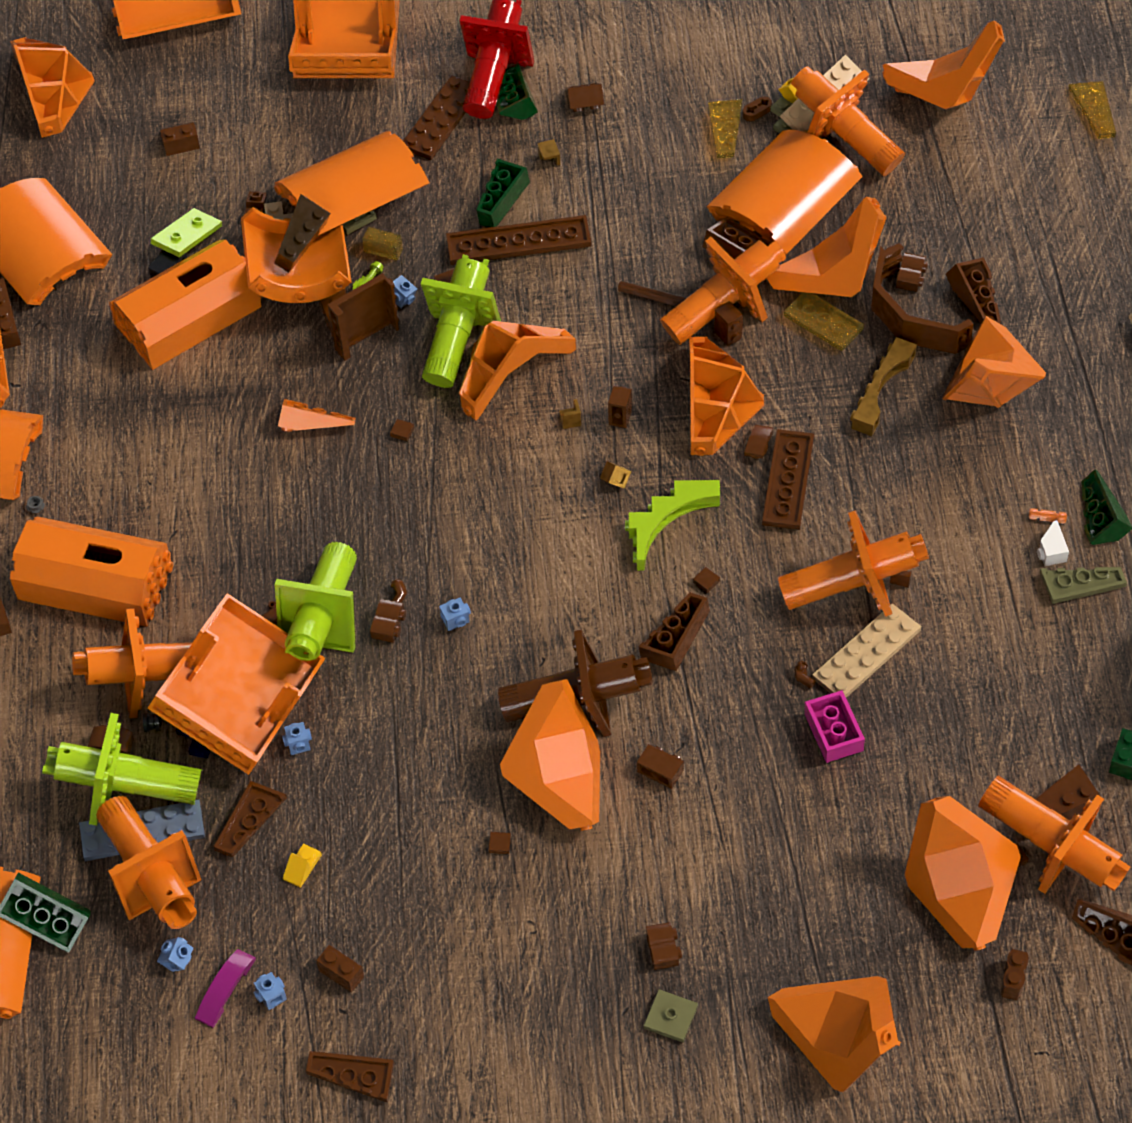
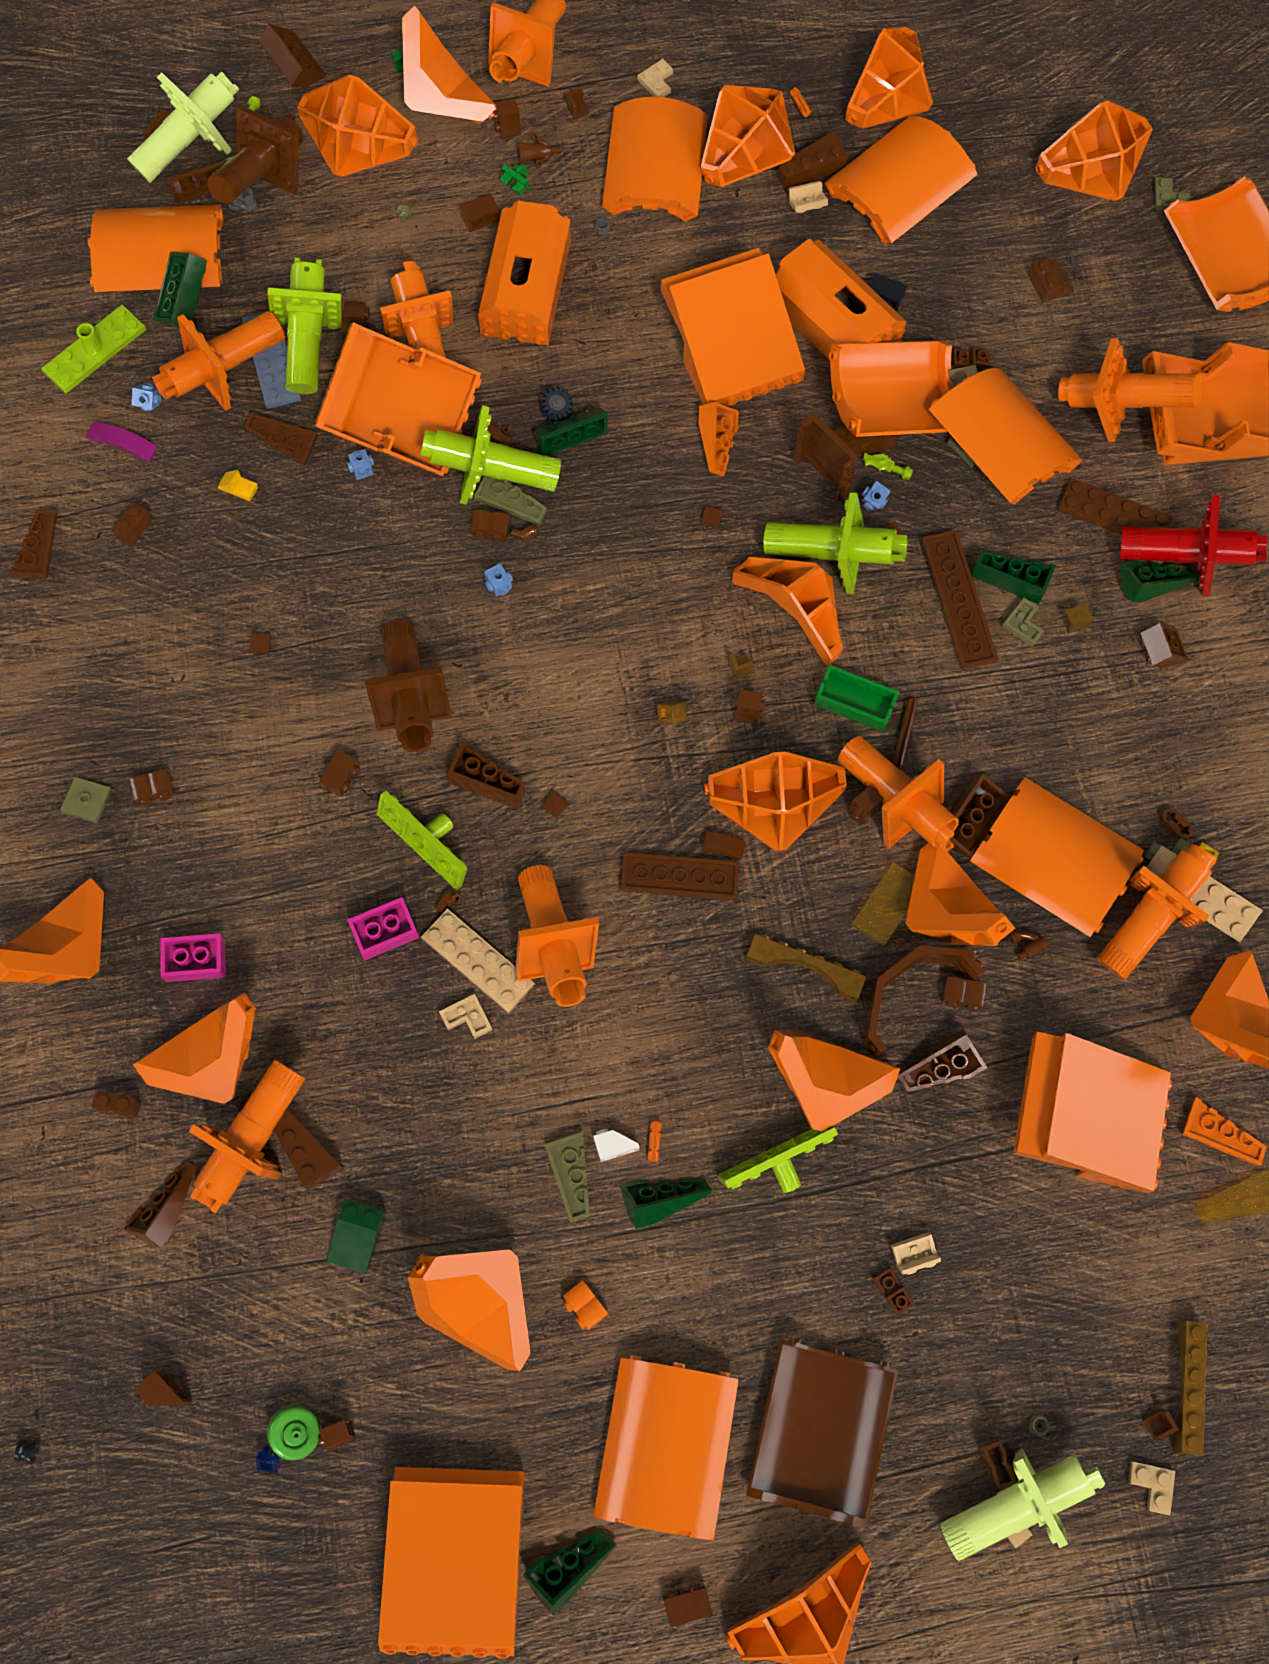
camera: 80 degrees right, 15 degrees up
(41, 321) = (807, 197): none -> tan bracket
(95, 1019) = (93, 348): none -> lime plate
(99, 42) = (1164, 193): none -> olive plate
(186, 232) = (925, 300): plate -> none
(196, 381) = (734, 328): none -> orange panel
(252, 554) = (556, 404): none -> black wheel
(269, 990) = (110, 472): medium blue brick -> none
(286, 541) = (571, 431): none -> dark green slope
(302, 230) = (916, 386): dark brown wedge -> none
(326, 85) = (1119, 389): none -> orange piece
(368, 593) = (510, 499): none -> olive wing
(382, 243) = (935, 474): clear yellow brick -> none
(548, 197) = (1020, 625): none -> olive plate
(557, 758) = (324, 679): orange panel -> none
(617, 323) = (856, 698): none -> green piece
(684, 498) = (629, 756): lime arch -> none
(725, 126) = (1146, 791): clear yellow wing -> none
(740, 687) = (424, 839): none -> lime plate
(859, 900) = (193, 957): none -> dark pink brick
(921, 659) = (467, 1011): none -> tan plate
(1025, 186) = (1093, 1112): none -> orange panel
(1038, 111) = (1213, 1130): none -> orange wing
(1066, 418) = (779, 1160): none -> lime plate

